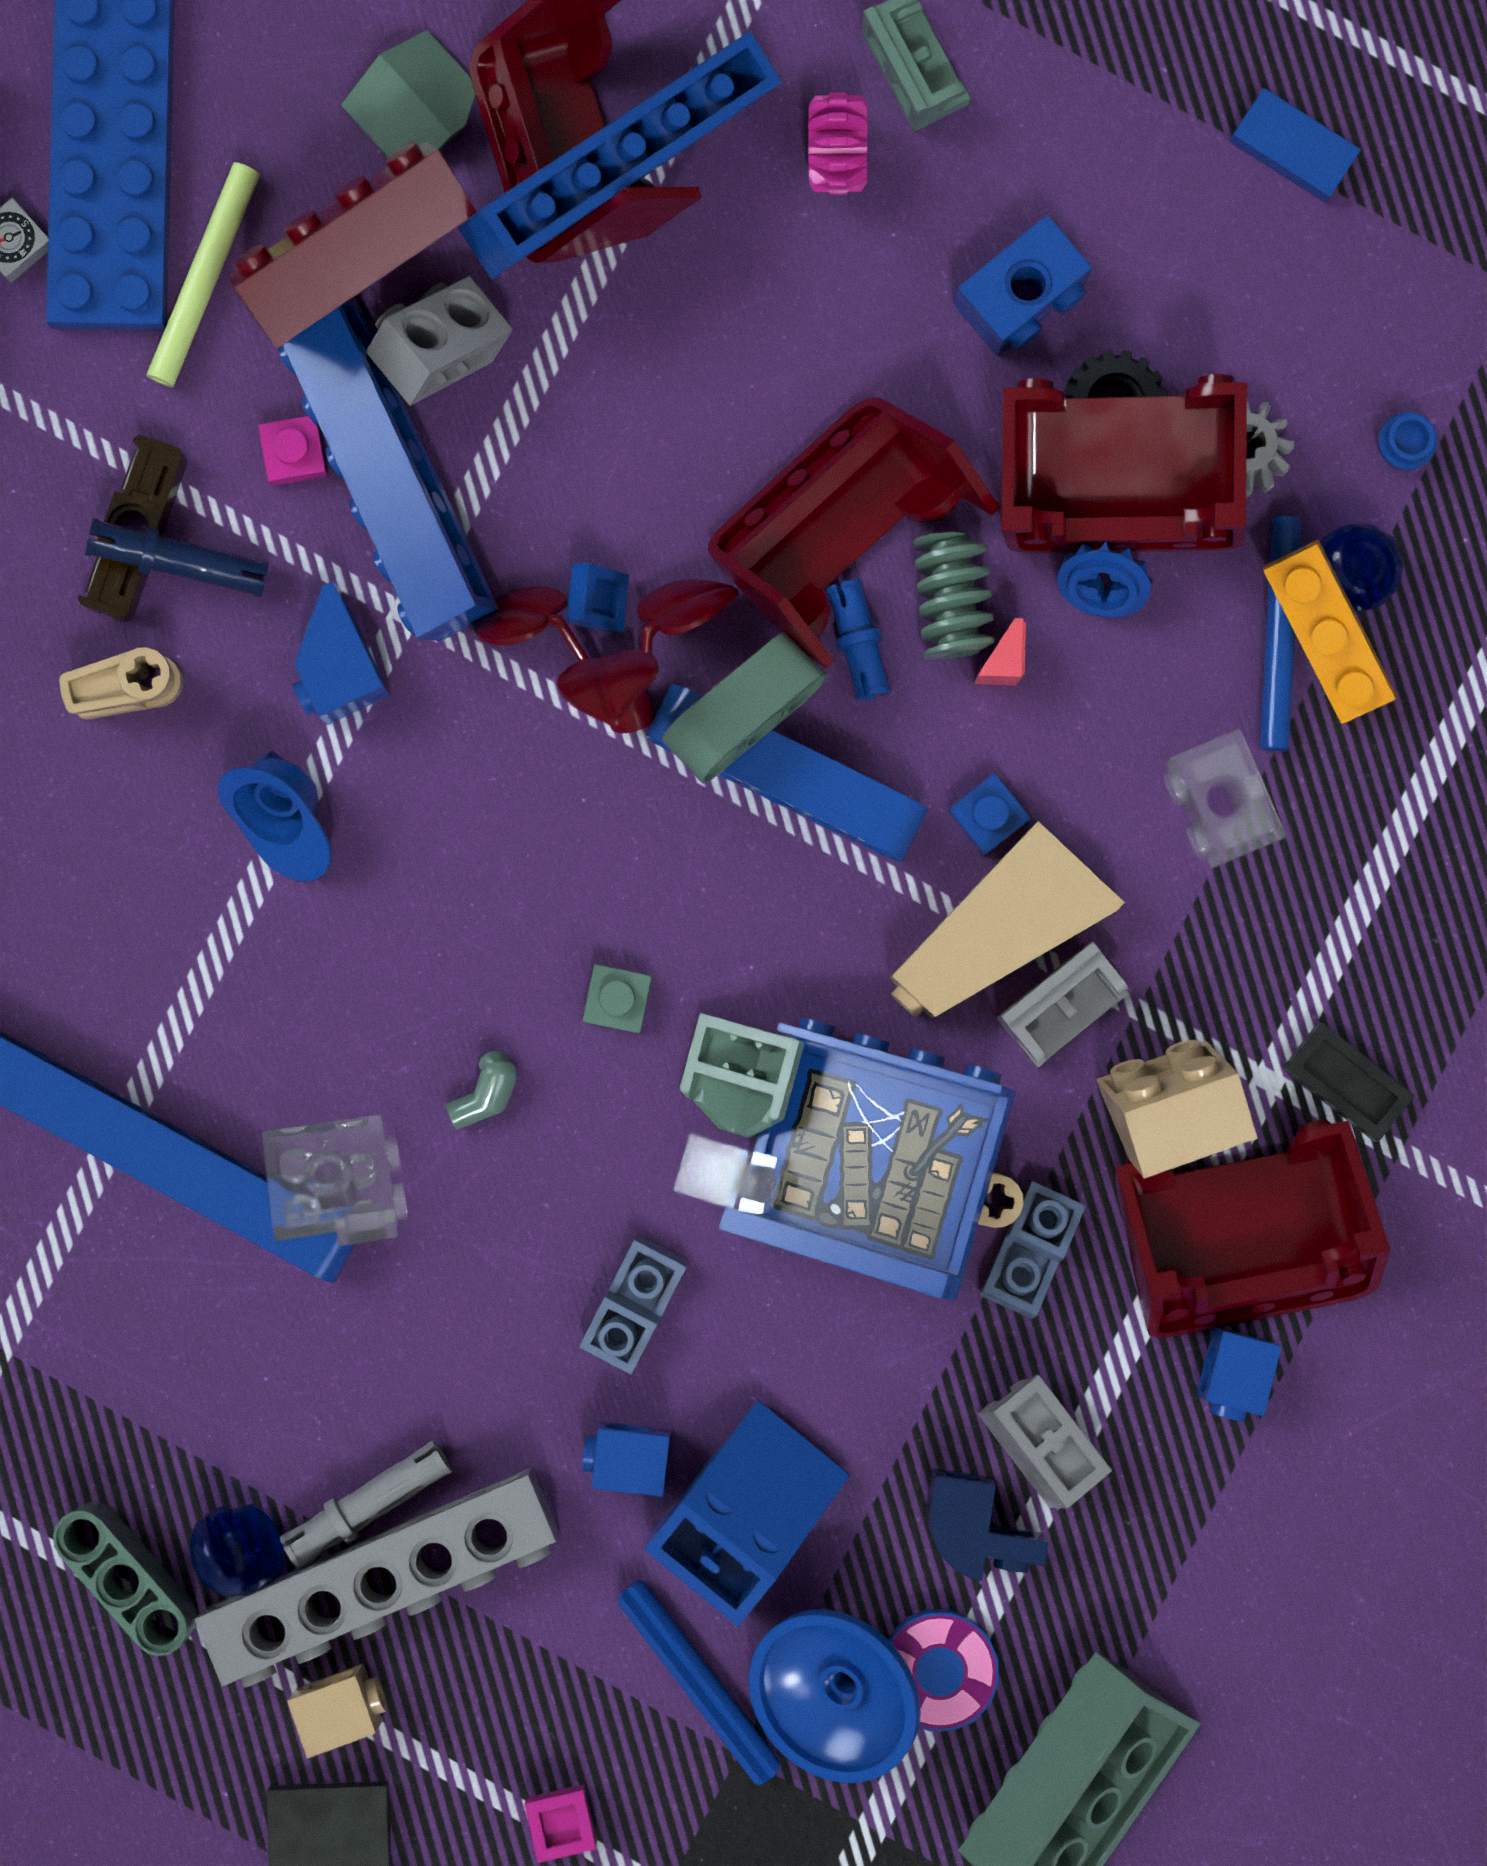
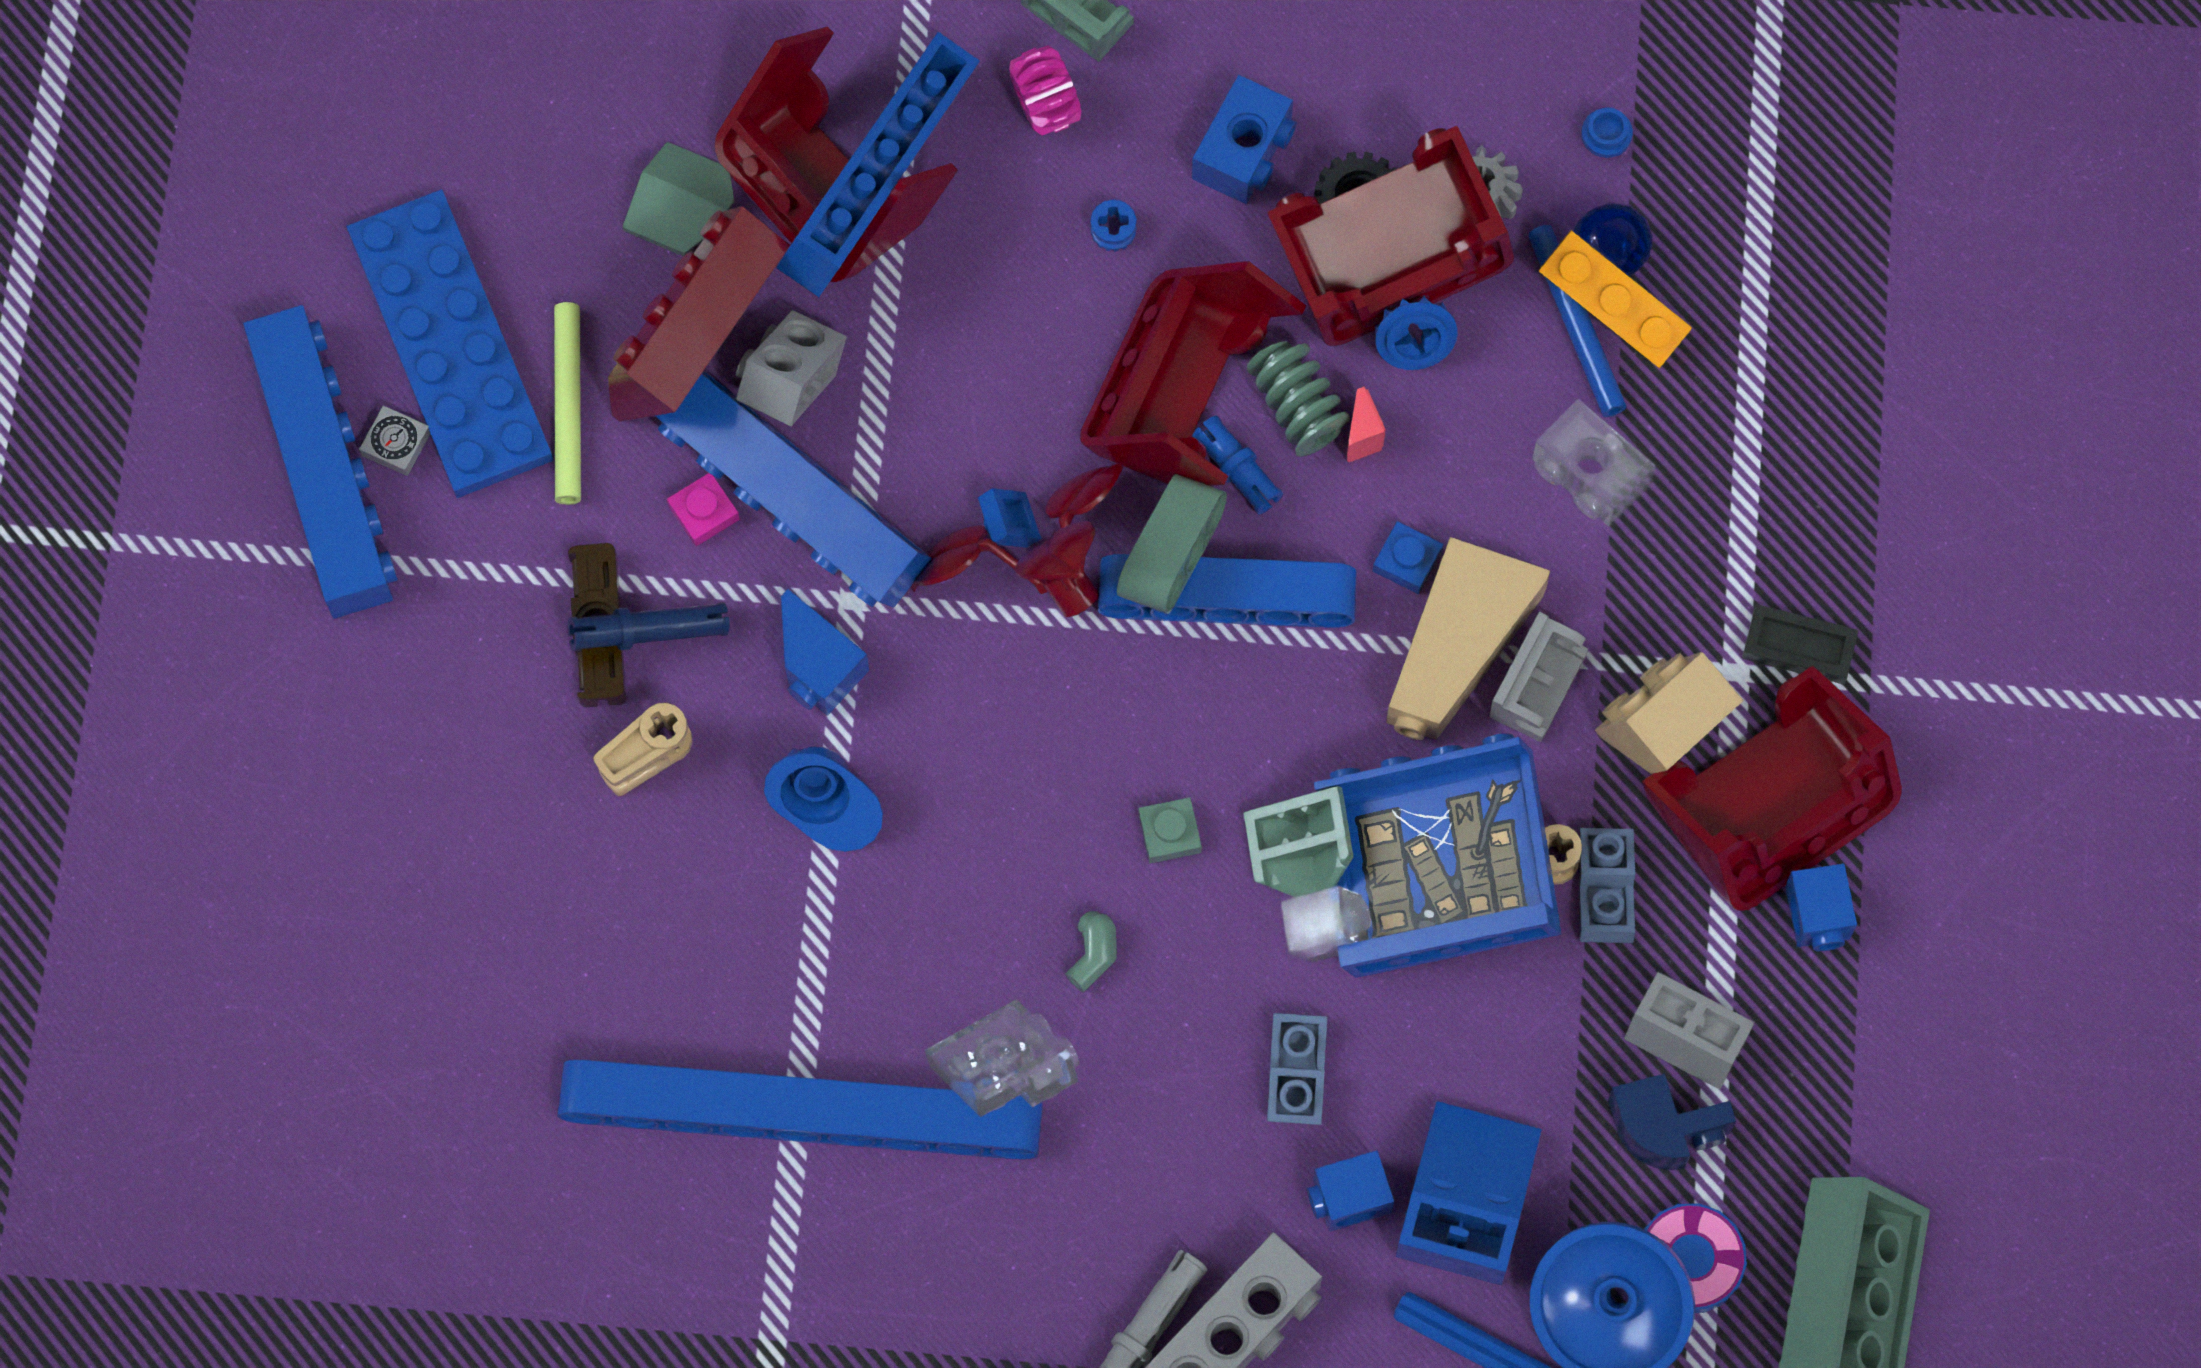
camera: 20 degrees left, 15 degrees down
(855, 337) = (1101, 233): none -> blue bush

